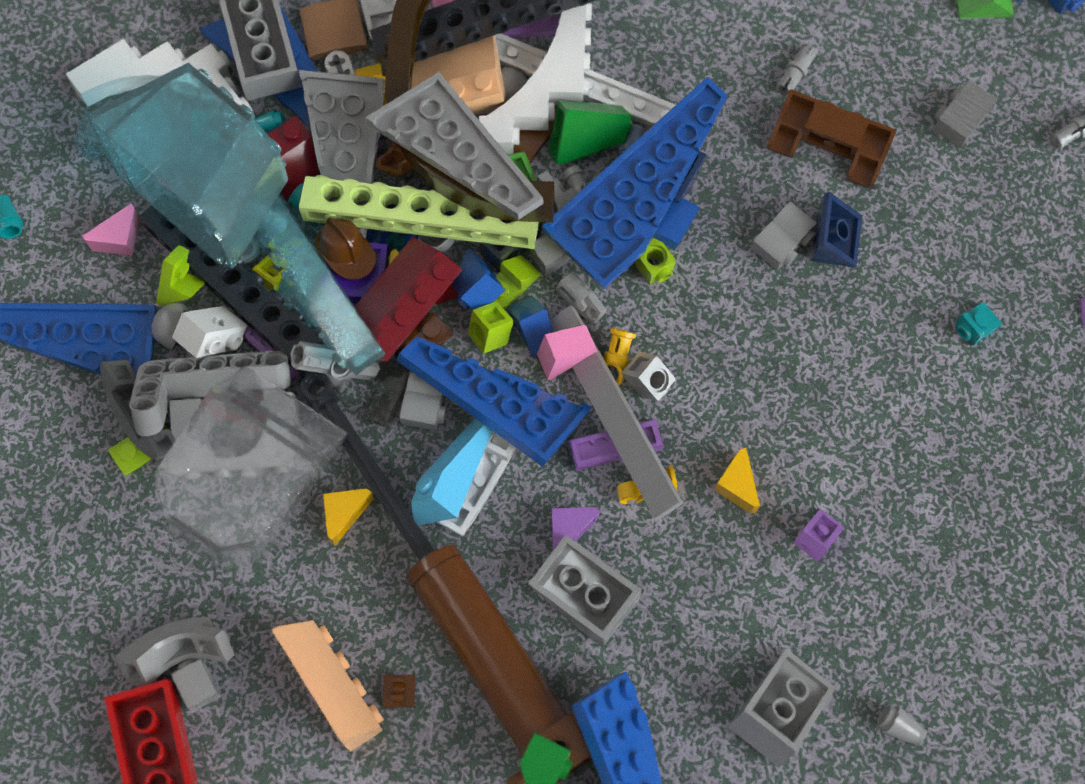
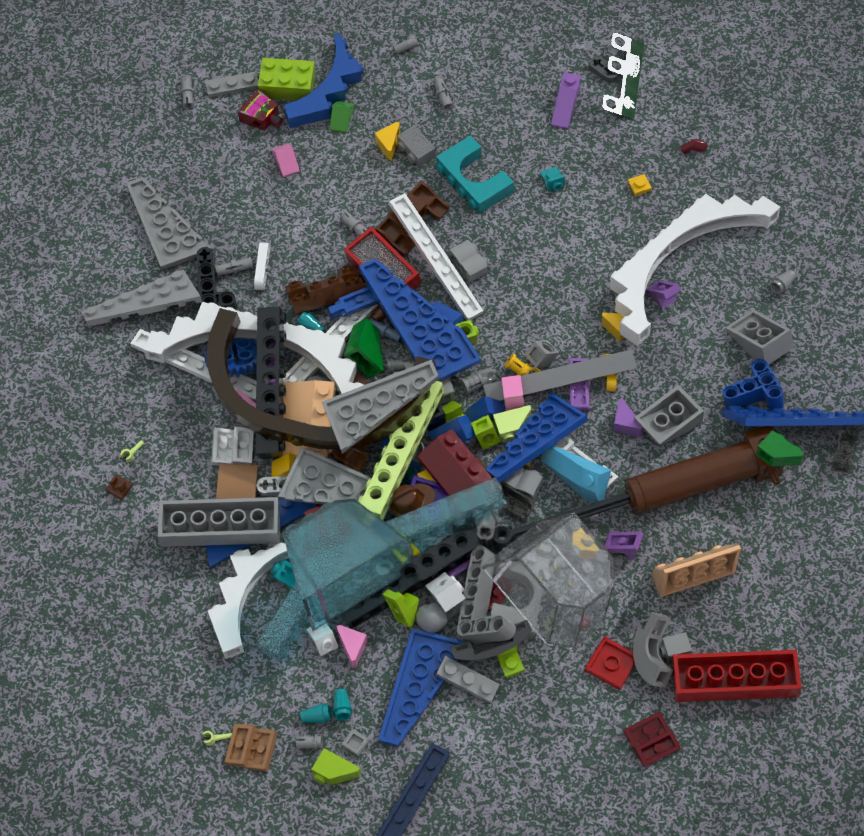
camera: 70 degrees left, 10 degrees down
(25, 244) = (341, 705): none -> teal cone
(47, 680) = (651, 739): none -> dark red slope
(87, 400) = (467, 679): none -> light grey plate
(117, 195) = (323, 639): none -> white bracket
(158, 594) = (611, 663): none -> red tile
(353, 568) = (624, 543): none -> medium lavender slope
(398, 691) = (704, 537): reddish brown tile -> none
(519, 359) = (510, 421): none -> yellowish green slope
(611, 51) = (310, 322): none -> teal cone
(651, 90) = (353, 303): none -> blue hinge
(664, 53) = (325, 291): none -> reddish brown bracket
(676, 724) = (761, 386): none -> blue beam
(751, 106) = (373, 246): none -> brick
(768, 184) = (435, 257): none -> white plate
(836, 233) = (475, 233): dark blue slope -> none
(952, 172) = (479, 194): none -> teal arch
(961, 70) = (387, 139): none -> yellow slope
(979, 567) = (701, 218): none -> white arch
(1013, 457) = (639, 185): none -> yellow plate

